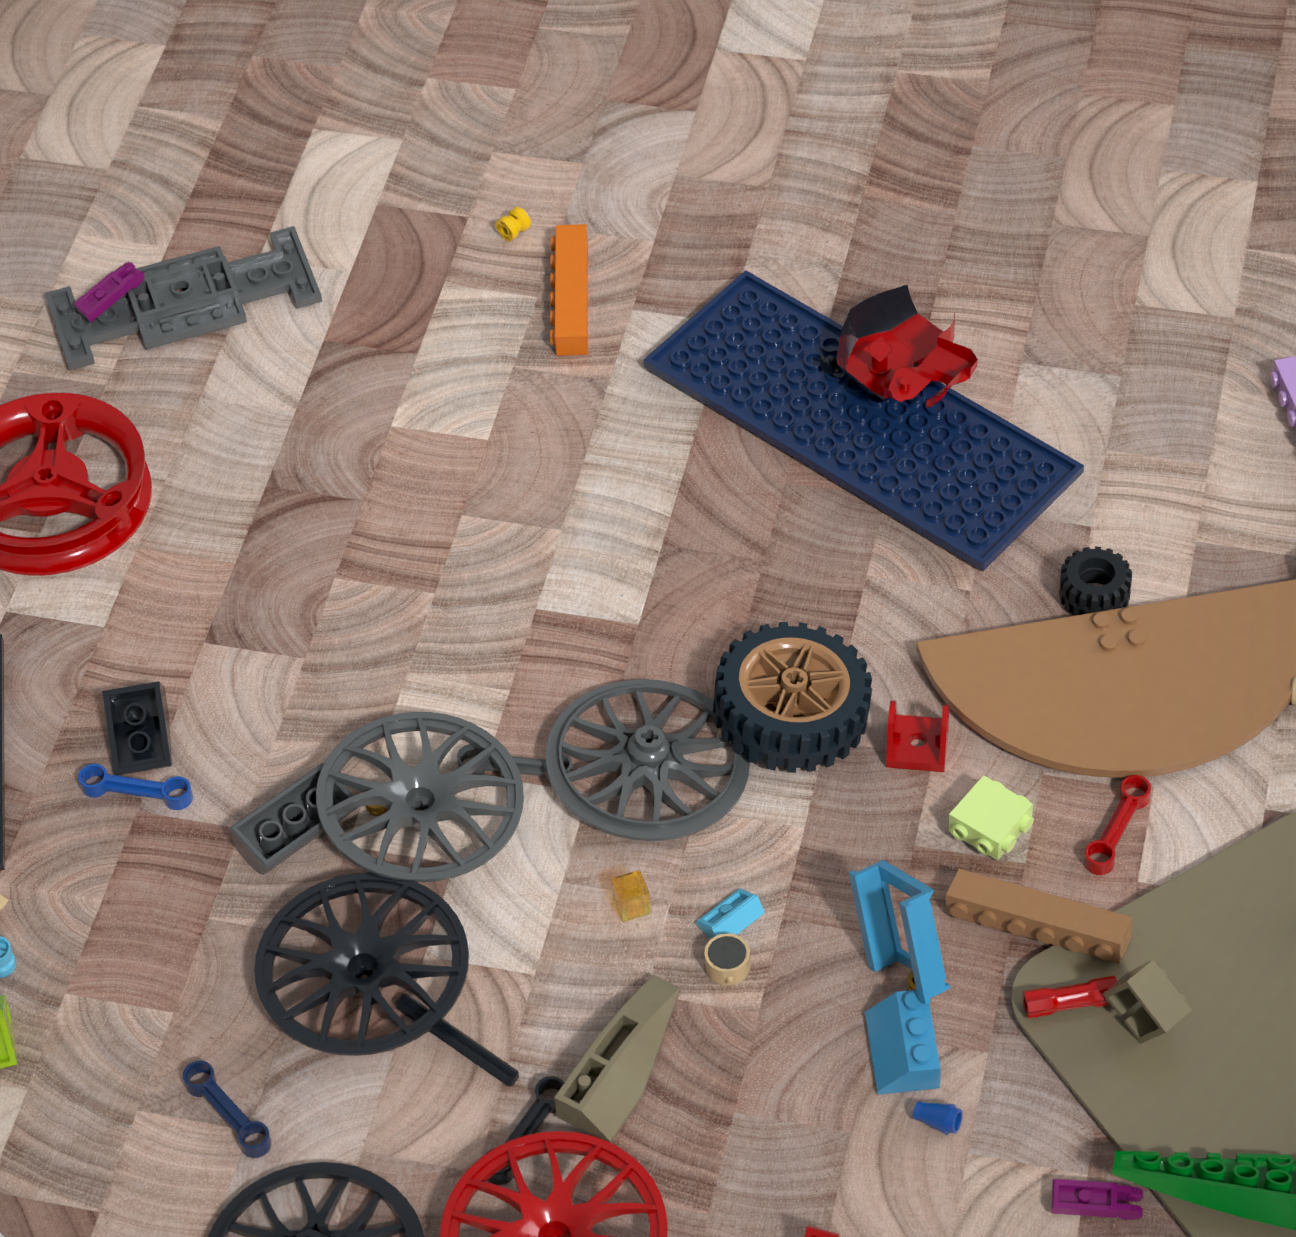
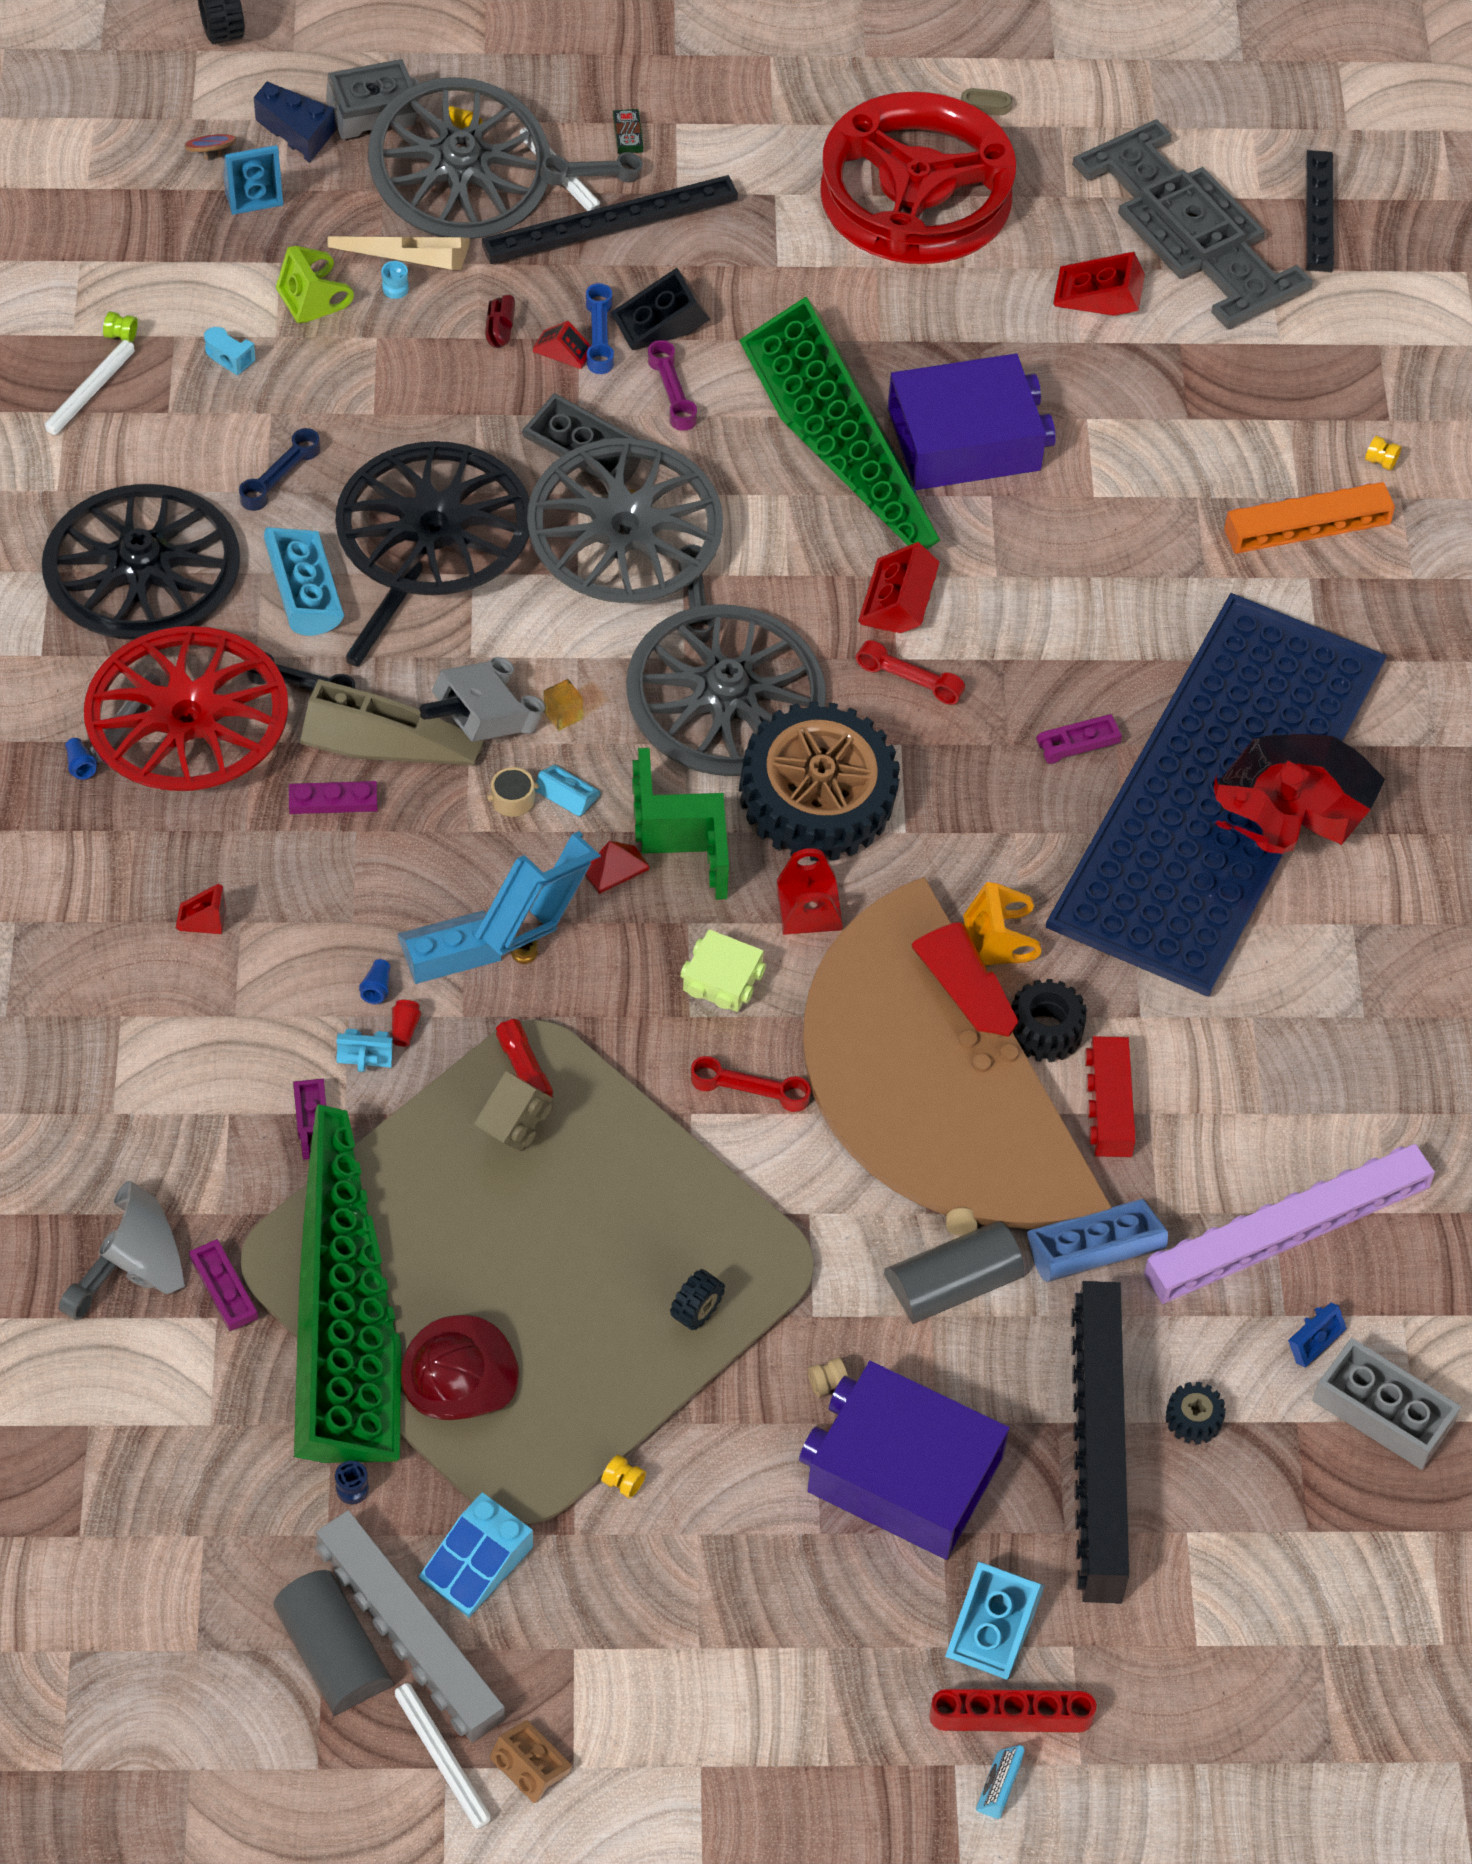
camera: 70 degrees right, 5 degrees up
(37, 1135) = (228, 351): none -> medium azure leg
(96, 870) = (500, 320): none -> dark red arm
(109, 291) = (1164, 158): magenta hinge -> none
(145, 822) = (563, 344): none -> red slope
(203, 207) = (1319, 211): none -> black plate
(235, 738) = (672, 385): none -> magenta piece
(238, 376) = (1101, 285): none -> red slope
(327, 611) = (833, 417): none -> green wedge
(381, 504) = (969, 421): none -> dark purple brick
(398, 1101) = (304, 580): none -> medium azure brick
(564, 601) = (900, 589): none -> red slope
(618, 958) = (482, 702): none -> light grey piece
(641, 634) = (946, 687): none -> red piece
(689, 1124) = (333, 797): none -> magenta plate
(776, 502) = (1079, 738): none -> magenta plate
(805, 838) = (680, 823): none -> green bracket
(836, 891) = (616, 865): none -> red slope
(994, 1099) = (404, 1021): none -> red cone
(997, 592) = (987, 928): none -> light orange hose
(1027, 1138) = (364, 1050): none -> medium azure hips
(1039, 916) = (613, 1025): medium nougat brick -> none
(1064, 619) = (961, 972): none -> red panel
(1183, 557) = (1111, 1097): none -> red brick

